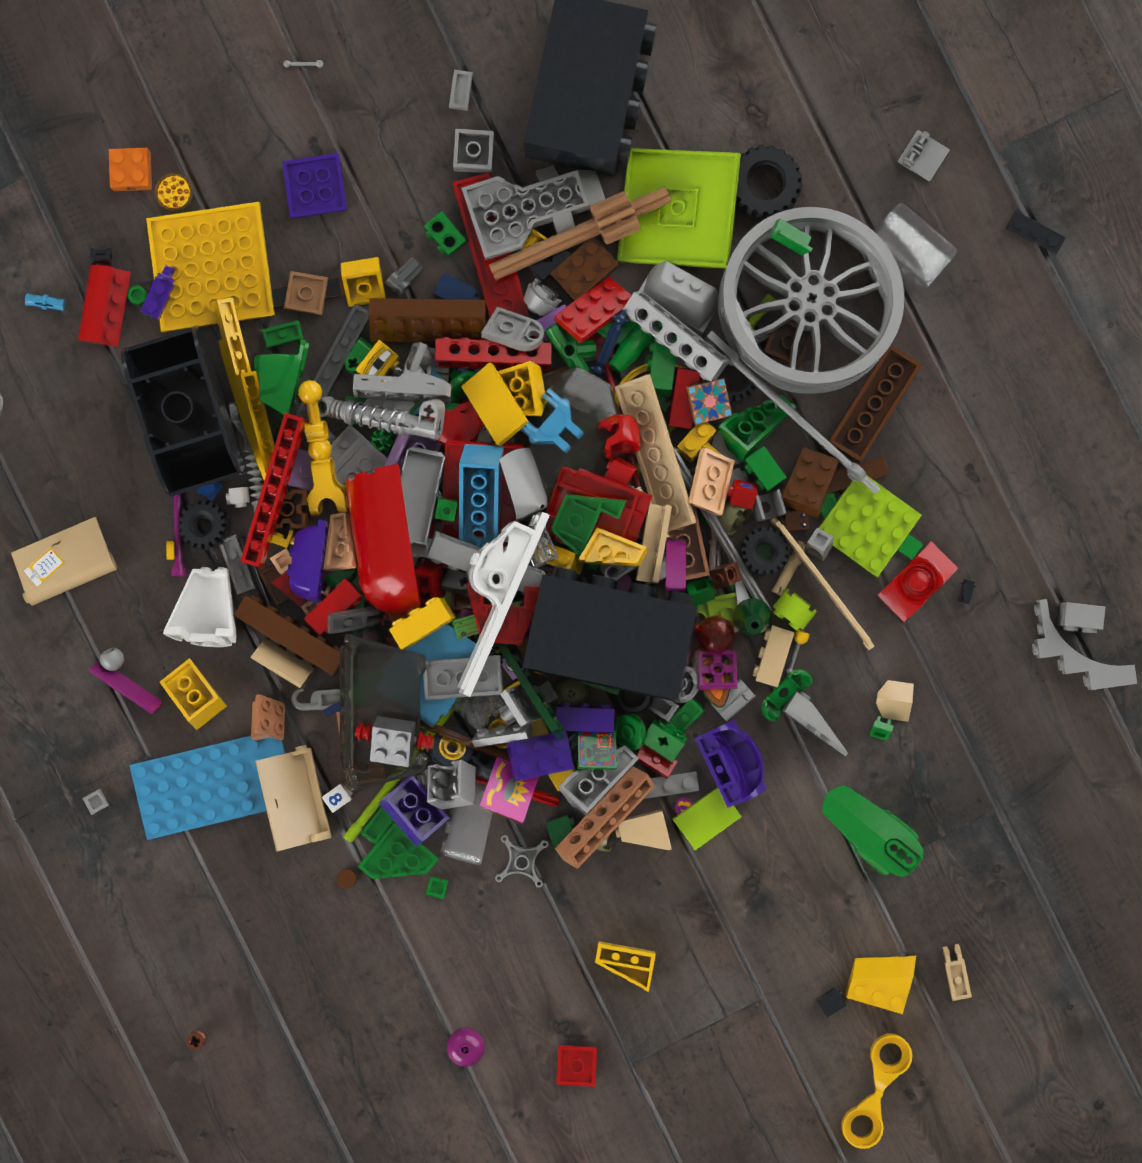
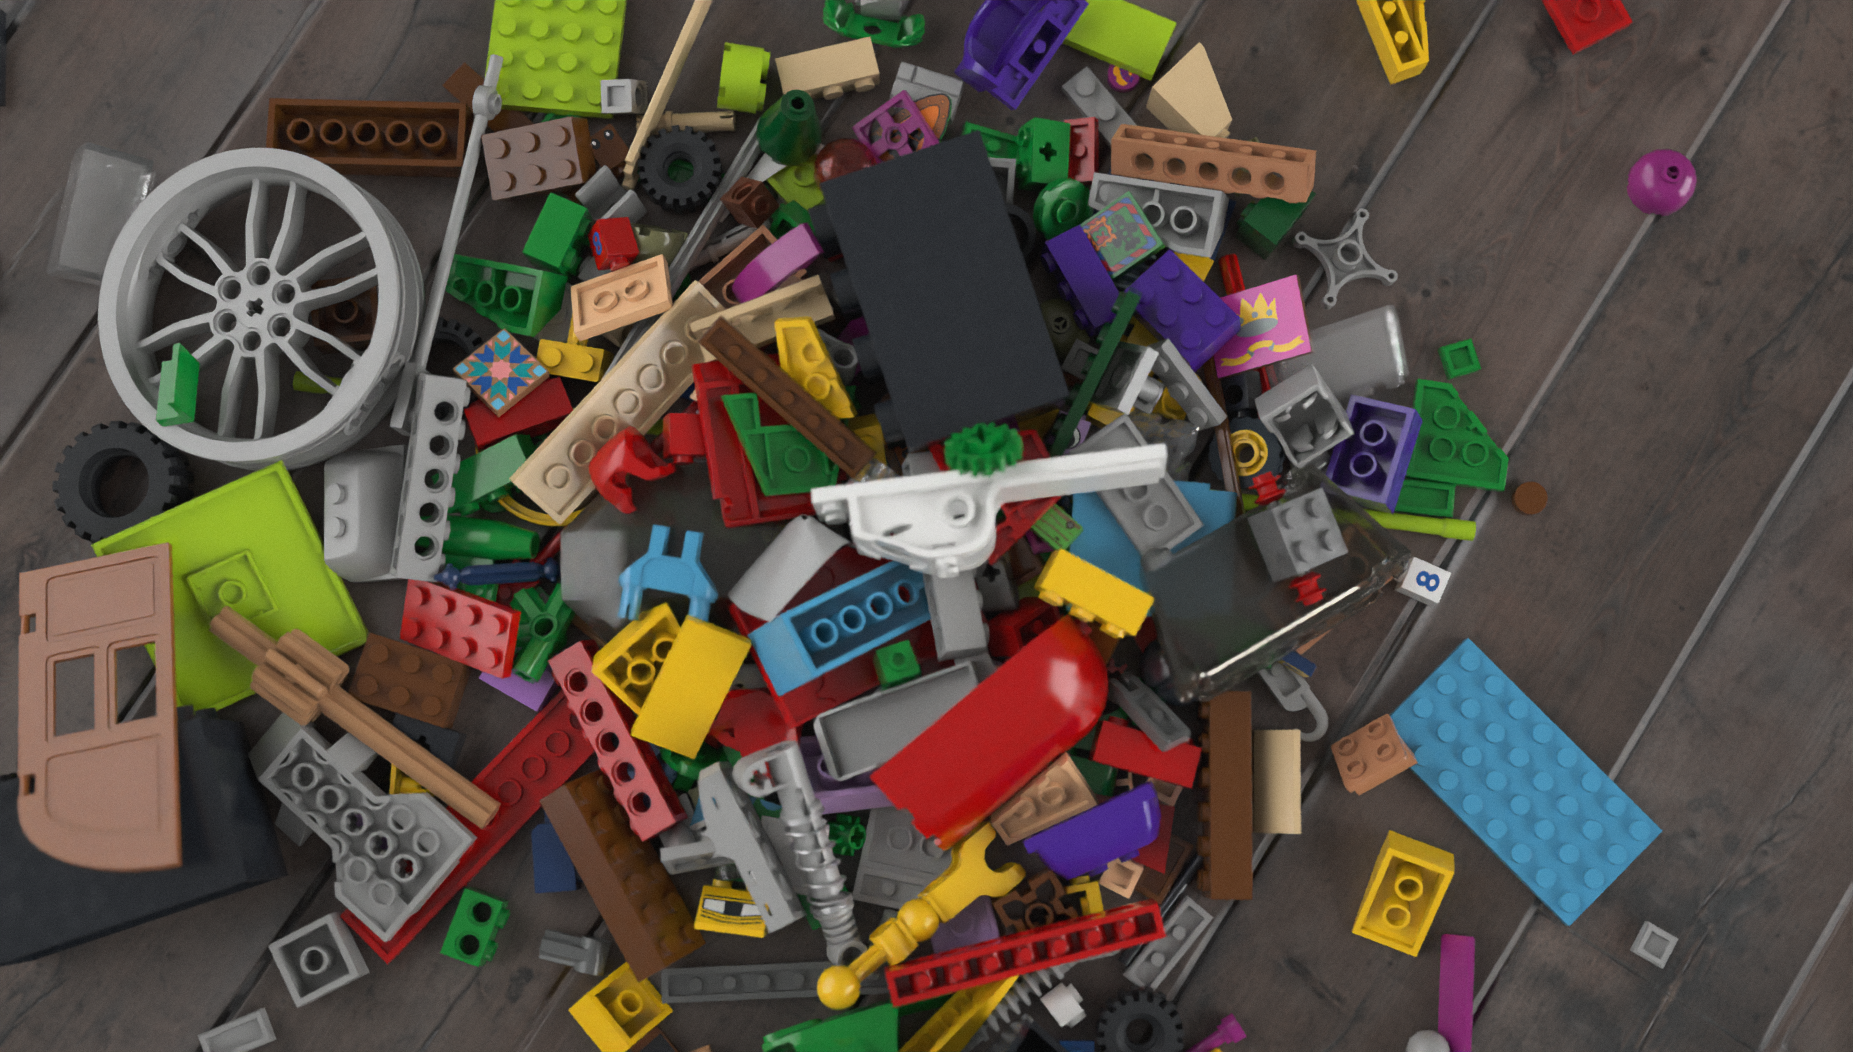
camera: 125 degrees left, 5 degrees down
(204, 610) = (1267, 952): white cone -> none
(293, 798) = (1466, 644): tan door -> none
(357, 354) = (735, 949): green piece -> none
(513, 330) = (562, 729): light grey tile -> none
(518, 607) = (983, 450): none -> green gear
(541, 298) = (491, 719): light grey cone -> none
(606, 99) = (110, 790): none -> door
(607, 532) = (787, 396): none -> reddish brown tile
(800, 638) = (779, 47): hinge -> none

